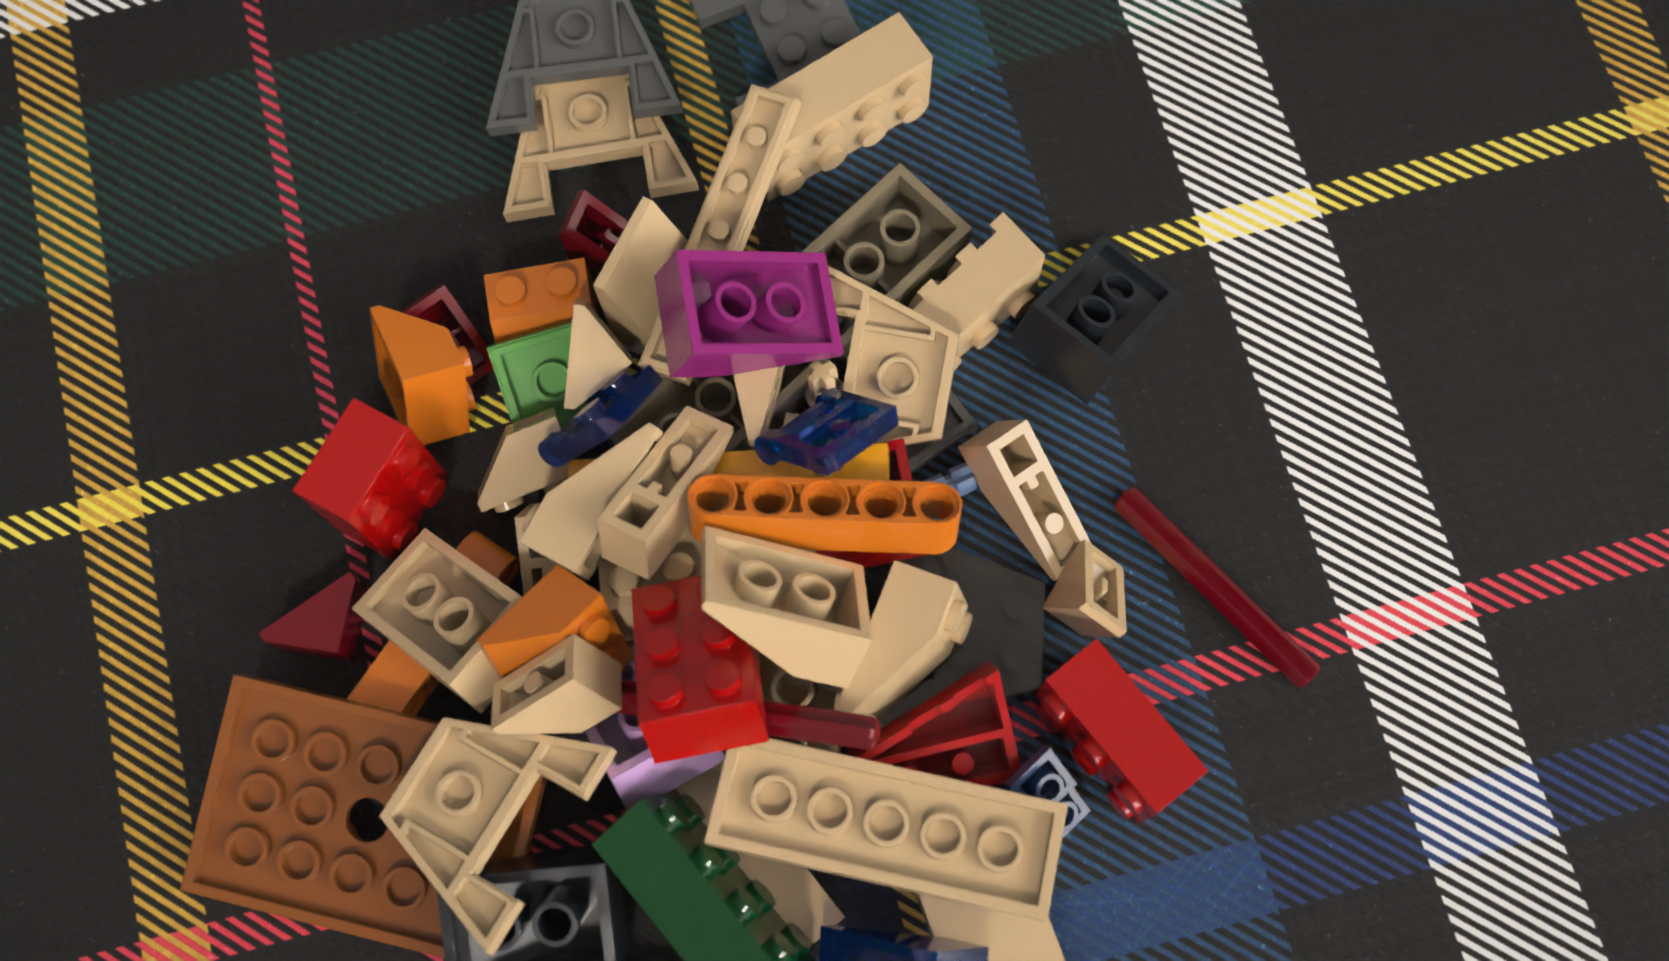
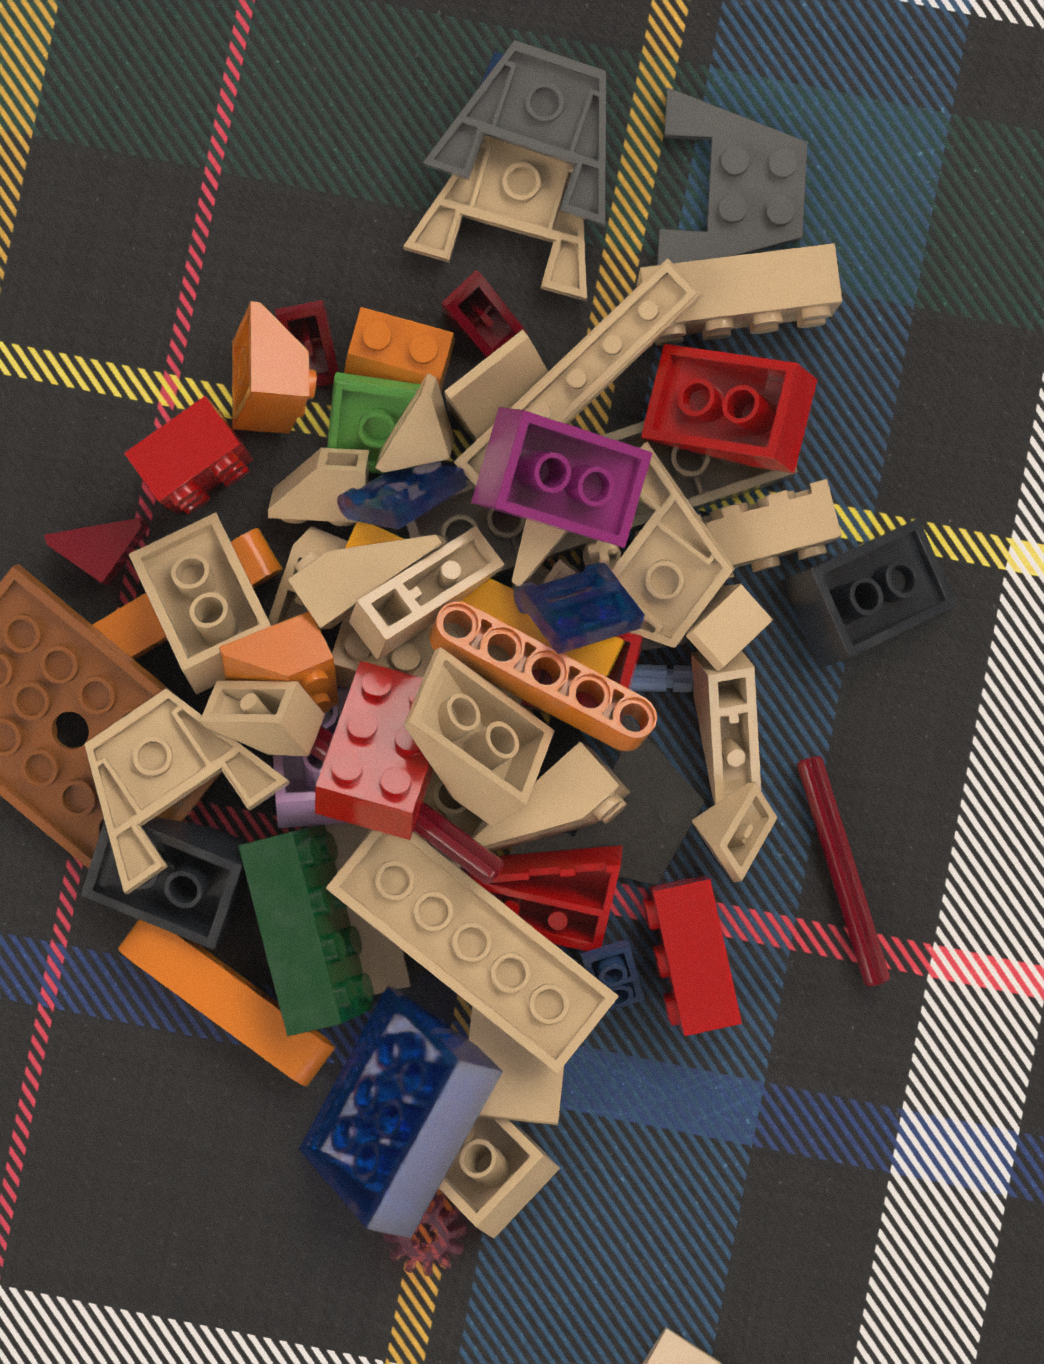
camera: 25 degrees right, 15 degrees up
(880, 190) = (730, 406): none -> red slope
(981, 393) = (727, 625): none -> tan slope

